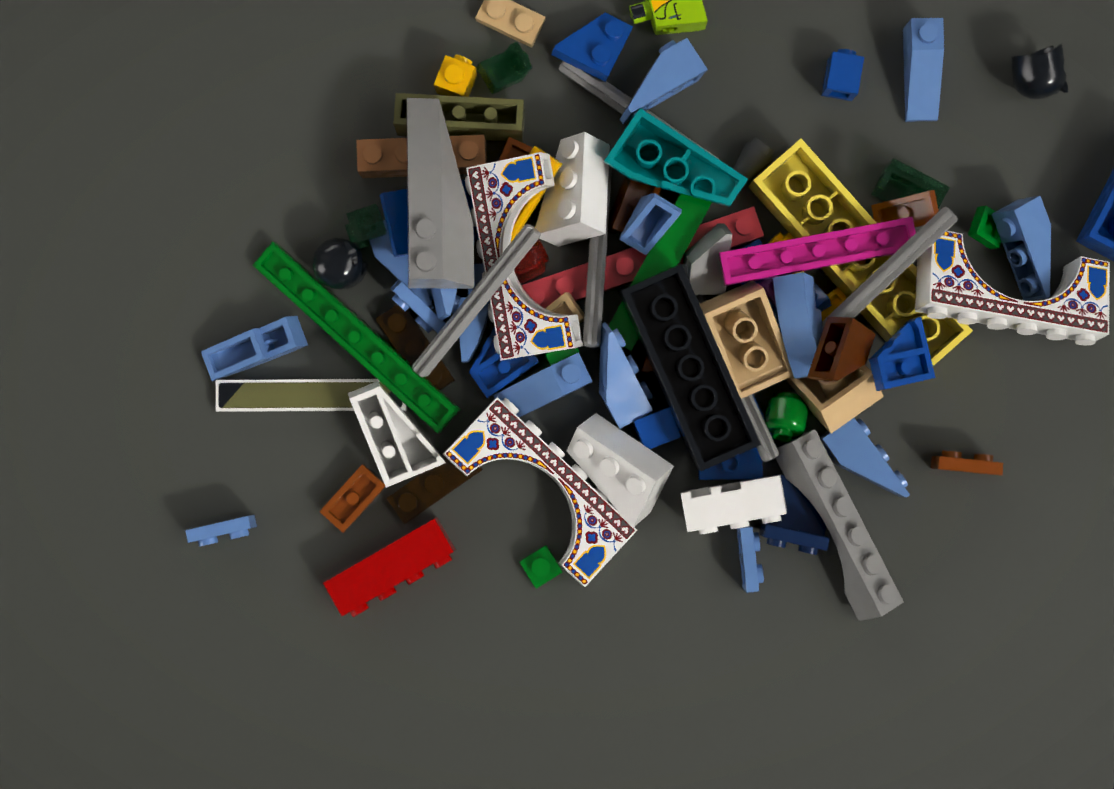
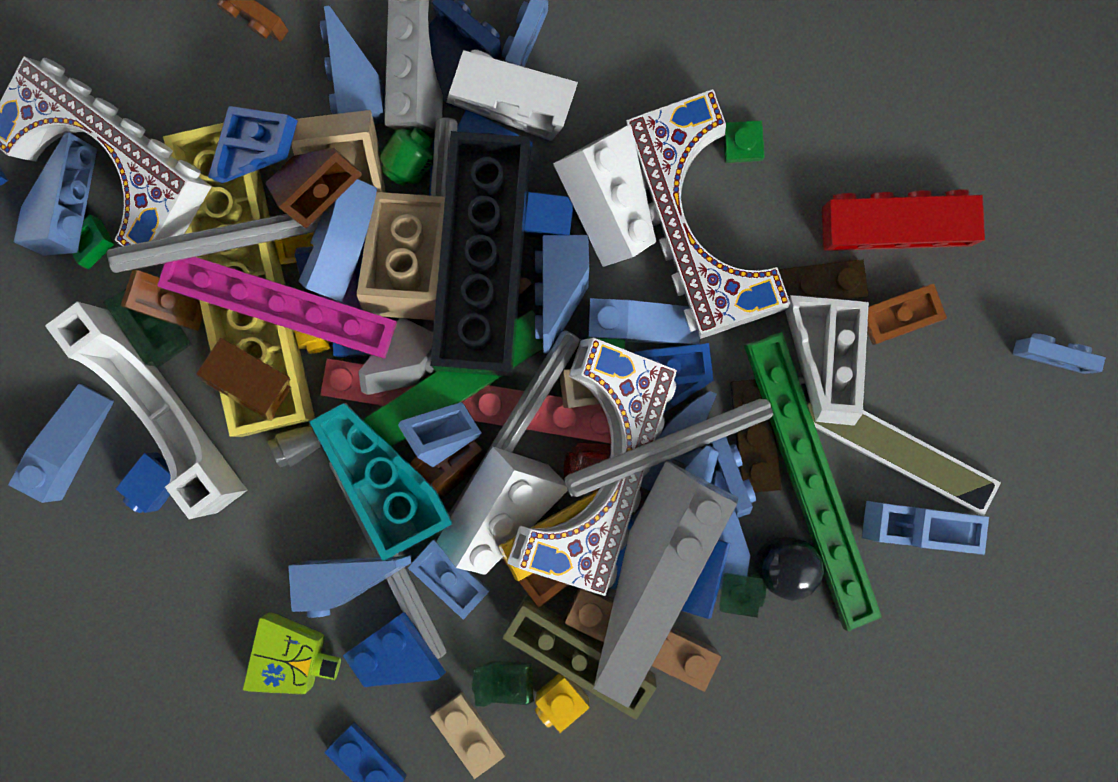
camera: 150 degrees left, 0 degrees up
(578, 118) = (455, 586): none -> medium blue plate
(810, 102) = (199, 474): none -> white arch
(811, 184) = (244, 379): none -> reddish brown hinge

